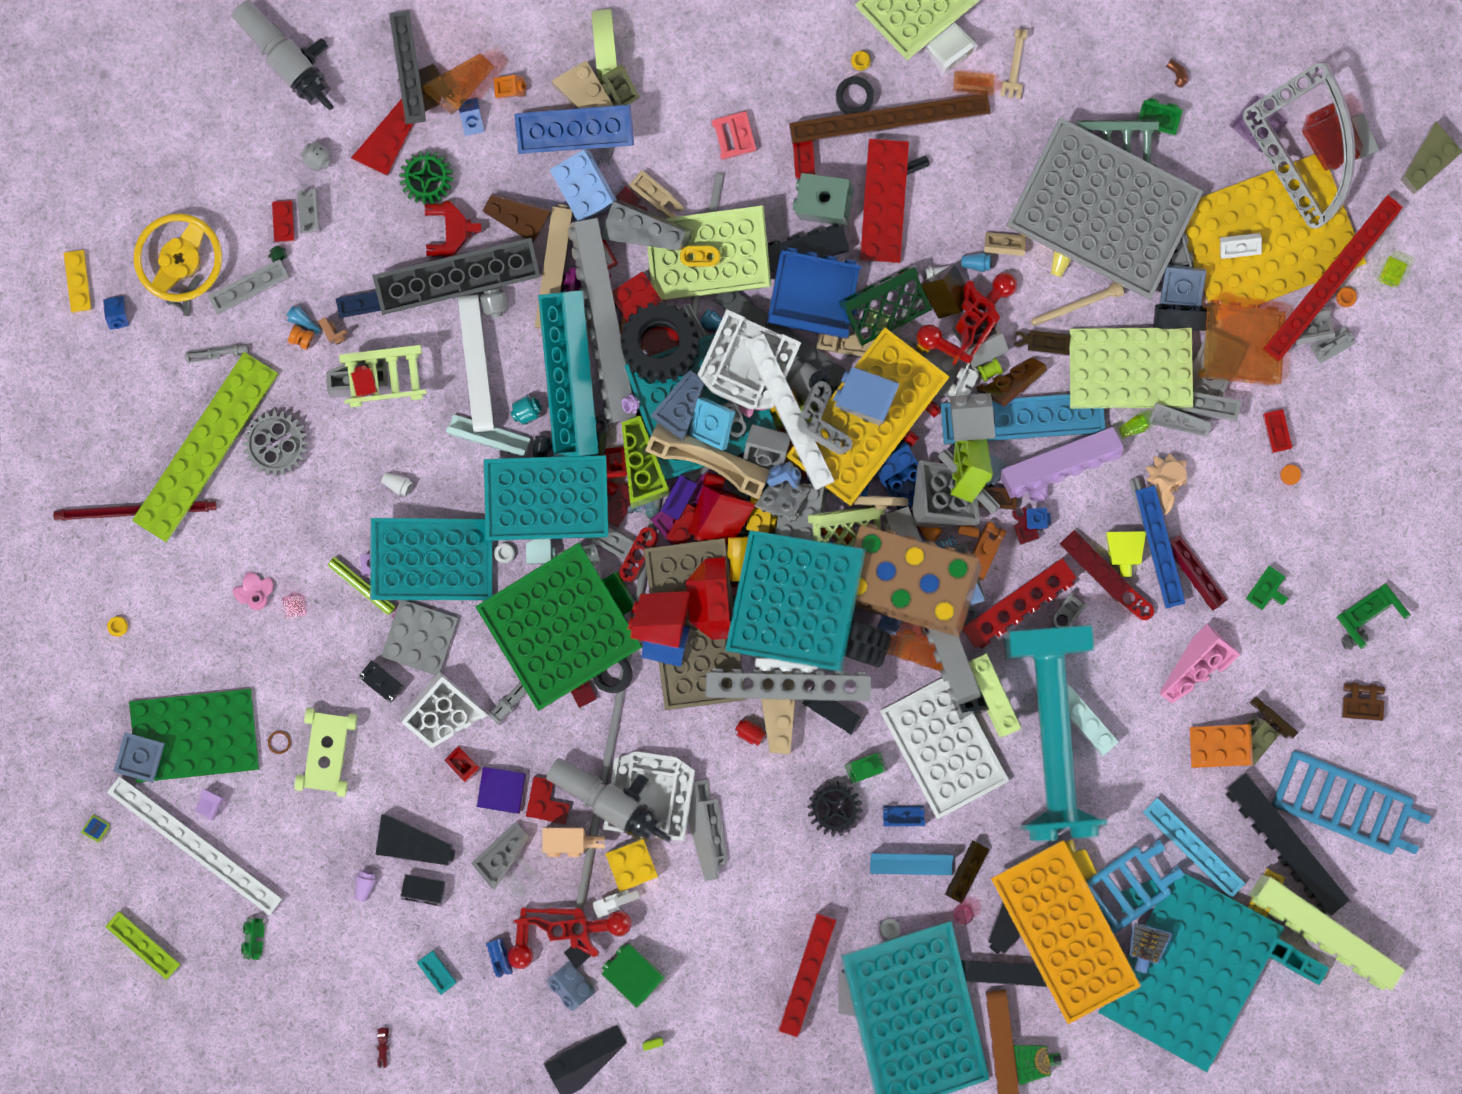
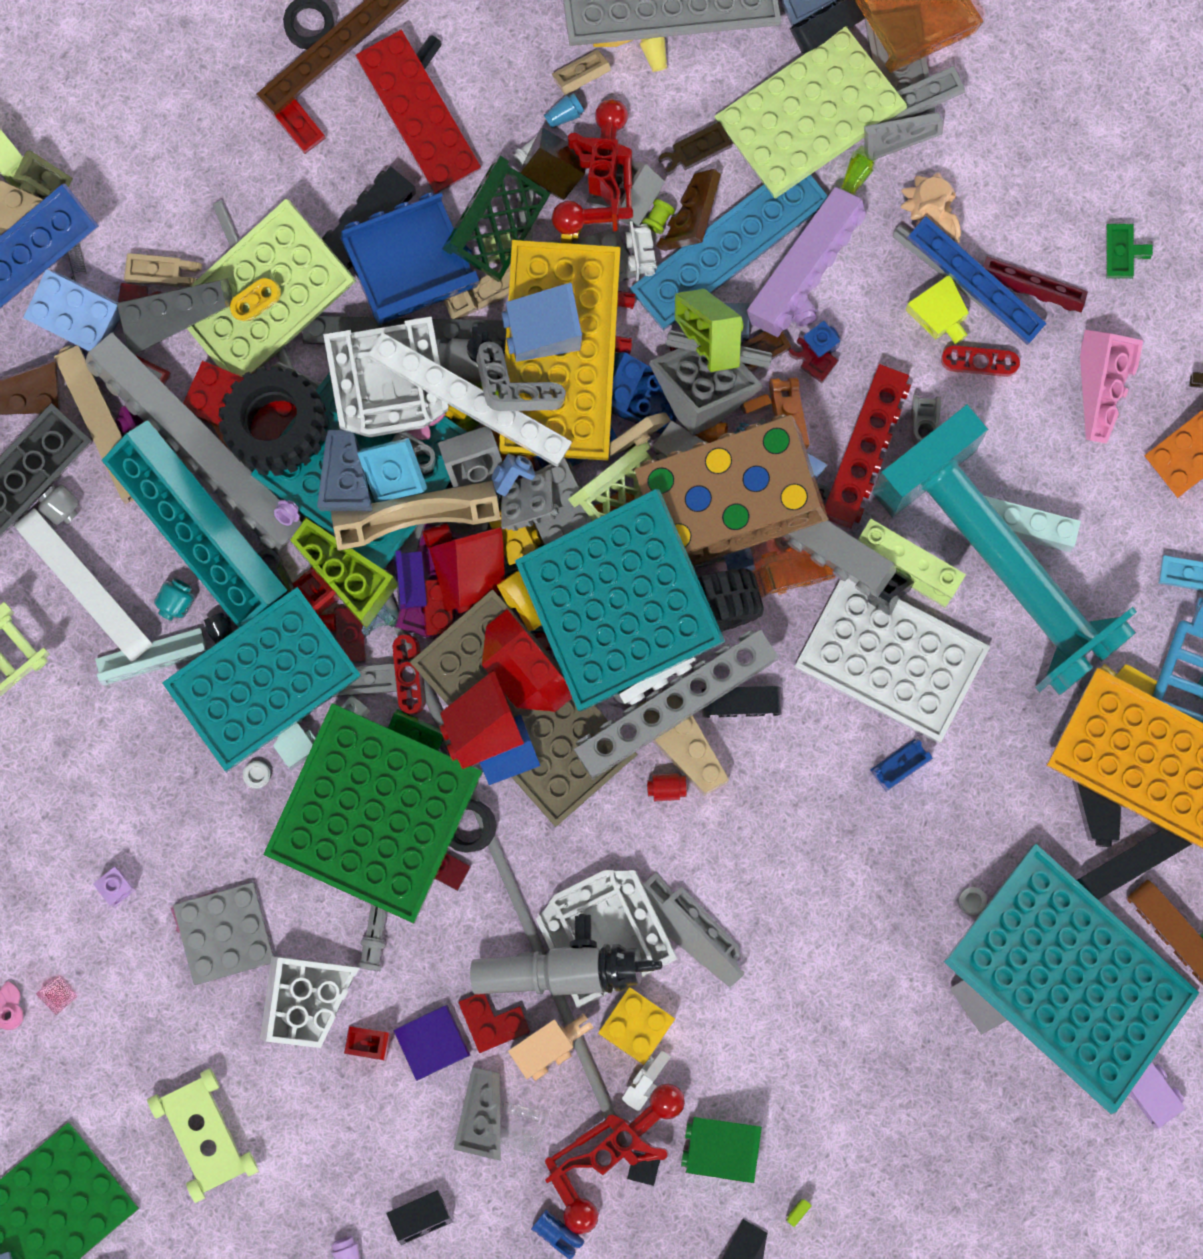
camera: 35 degrees left, 5 degrees down
(289, 742) = (155, 1161): dark orange piece -> none
(359, 584) = (118, 920): lime axle -> none
(381, 681) = (212, 1012): black hinge -> none
(398, 484) = (83, 778): white cone -> none
(407, 842) = (365, 1174): black slope -> none
(430, 559) = (176, 836): teal plate -> none
(570, 986) = (660, 1211): sand blue bracket -> none
(710, 320) = (315, 365): dark azure cone -> none
(740, 133) = (210, 144): coral plate -> none
(807, 975) = (918, 1015): red arch -> none
(814, 190) = (349, 151): sand green brick -> none
(848, 820) = (833, 809): black gear -> none
(866, 767) = (821, 740): green torso -> none
(911, 864) = (946, 812): dark azure fence -> none
(965, 916) = (1047, 827): clear pink wheel -> none
(967, 871) = (1013, 778): dark brown plate -> none
(972, 417) = (675, 274): light grey slope -> none
(1095, 565) = (920, 349): dark red plate -> none
(1113, 290) = (734, 42): tan piece -> none
(1277, 431) = (1014, 76): red plate -> none
(1290, 474) = (1060, 114): orange tile -> none

